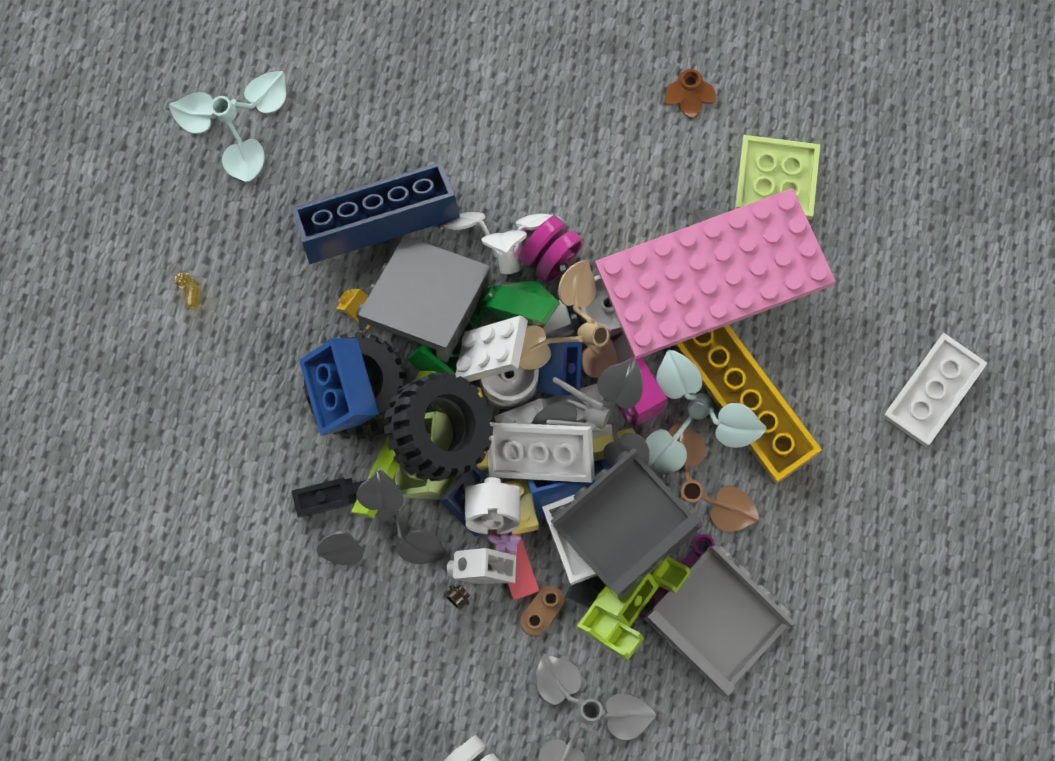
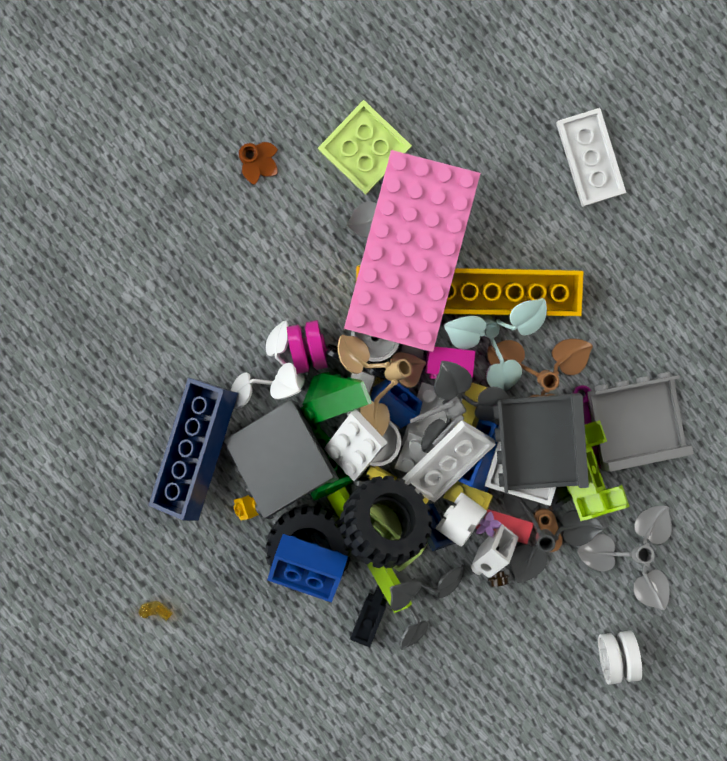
camera: 55 degrees left, 15 degrees up
(197, 109) = (26, 516): light aqua plant -> none
(497, 615) = (531, 561): none -> dark grey plant

